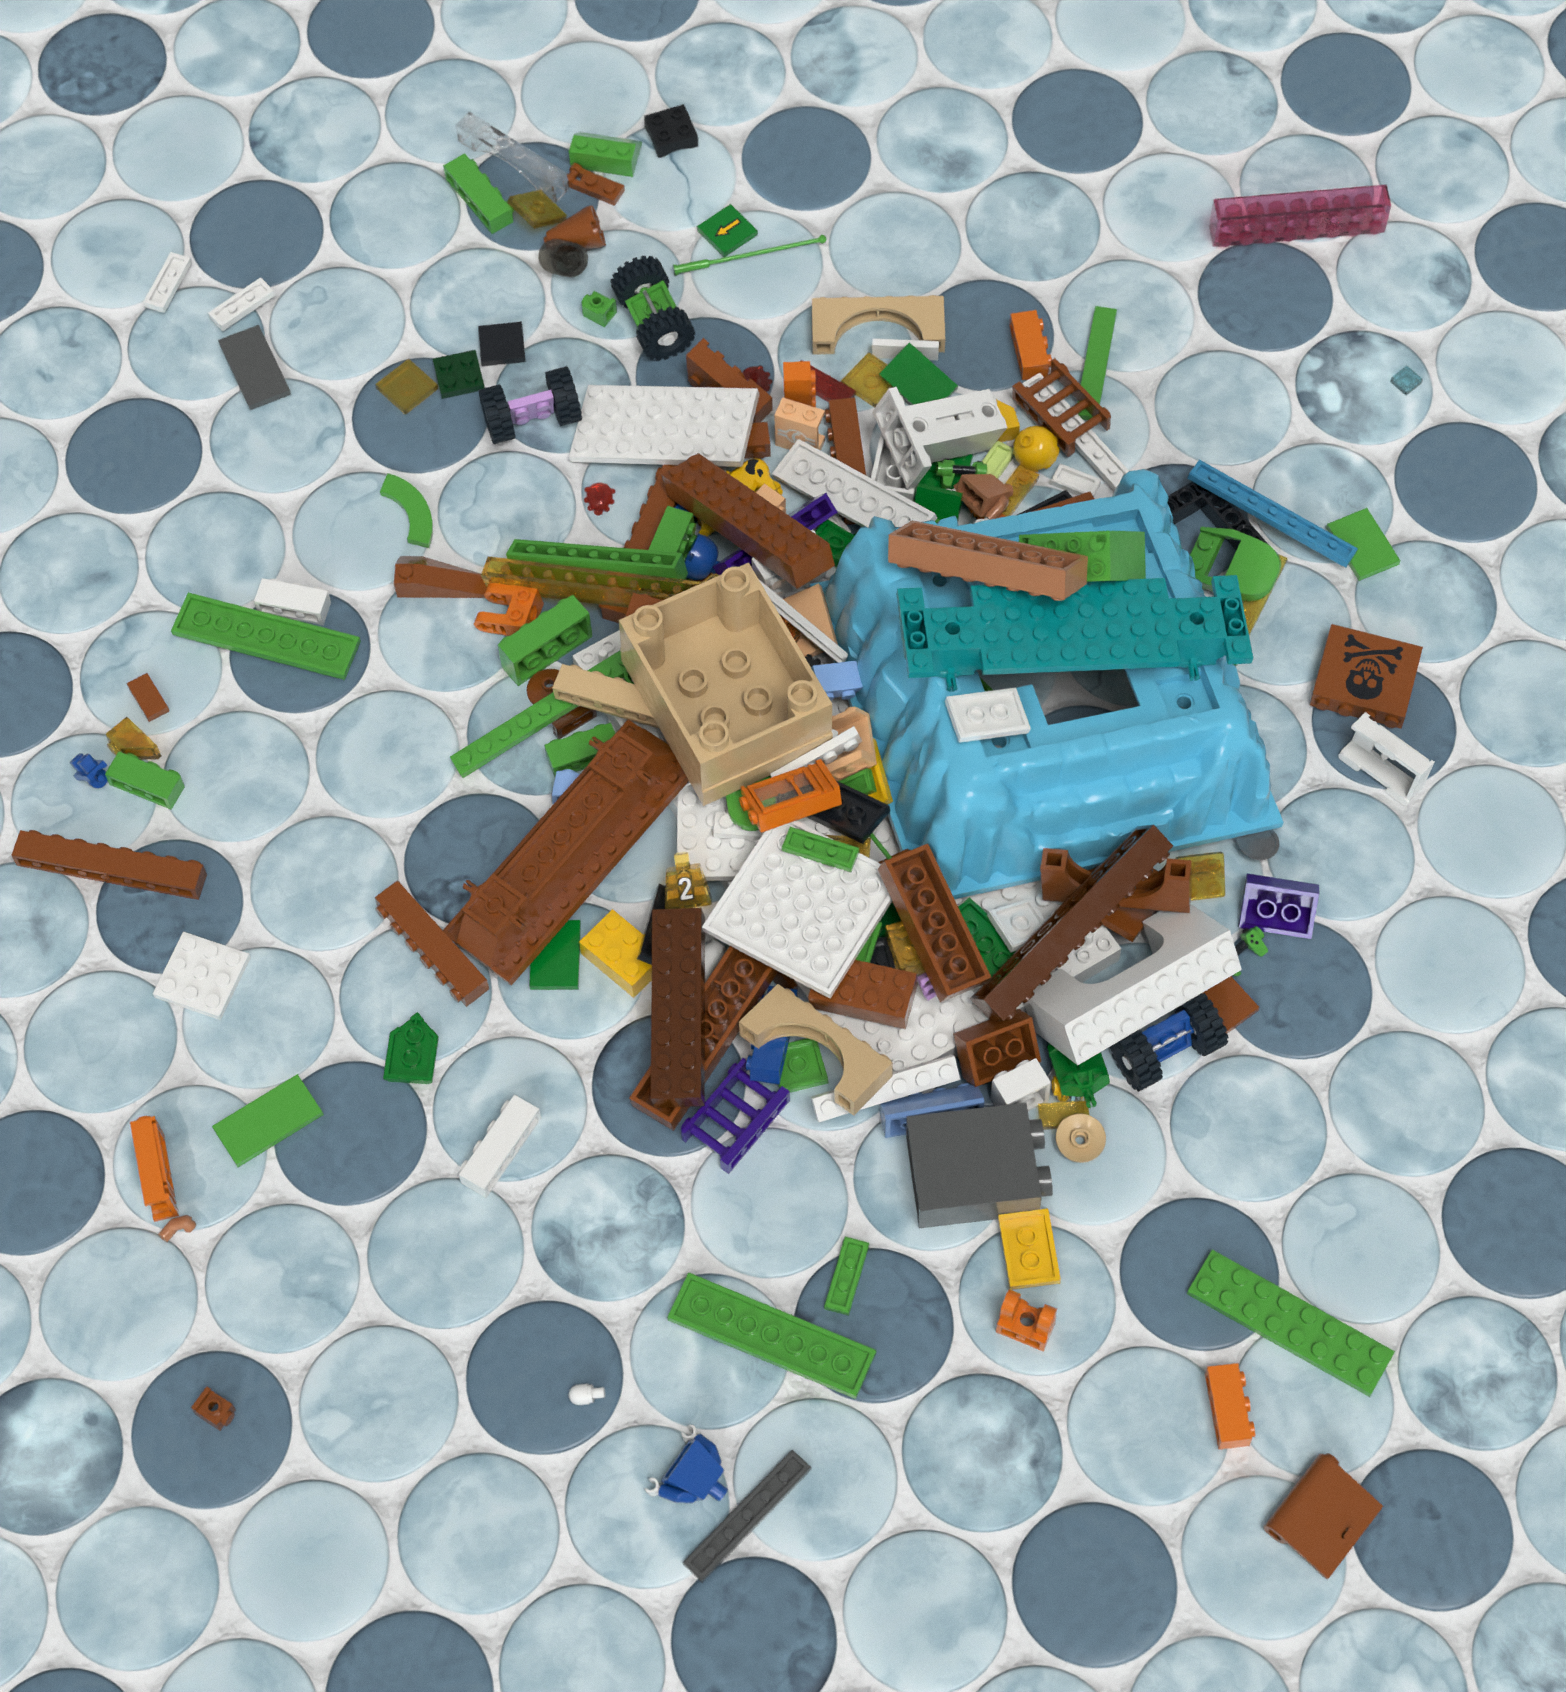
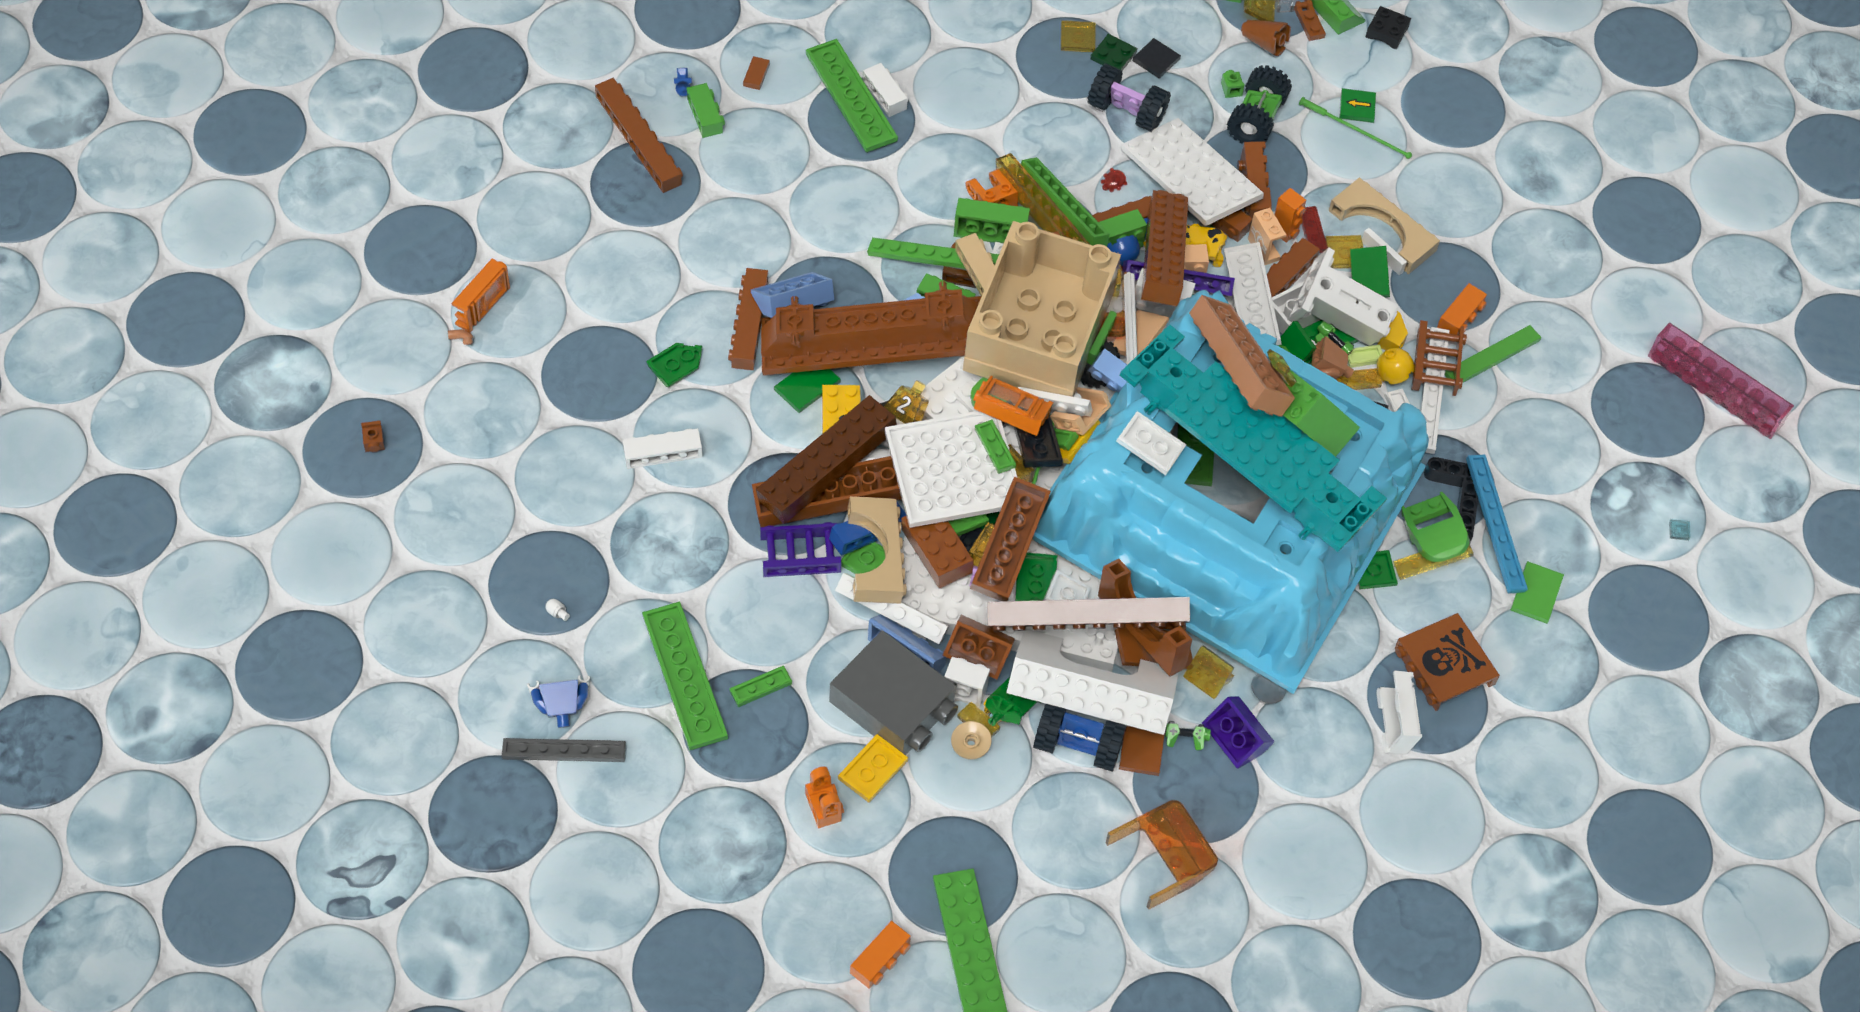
camera: 40 degrees right, 5 degrees down
(130, 739) = (720, 83): clear yellow slope -> none
(201, 975) = (619, 229): white plate -> none
(267, 1120) = (565, 328): bright green tile -> none
(415, 506) = (1007, 100): bright green tile -> none
(434, 579) = (972, 142): dark orange wedge -> none
(441, 889) = (809, 288): none -> medium blue slope
(563, 258) = (1242, 41): clear smoke piece -> none
(758, 376) = (1276, 191): clear red piece -> none
(1038, 538) = (1281, 367): none -> clear yellow slope
(1350, 1054) = (1177, 843): none -> clear orange windscreen

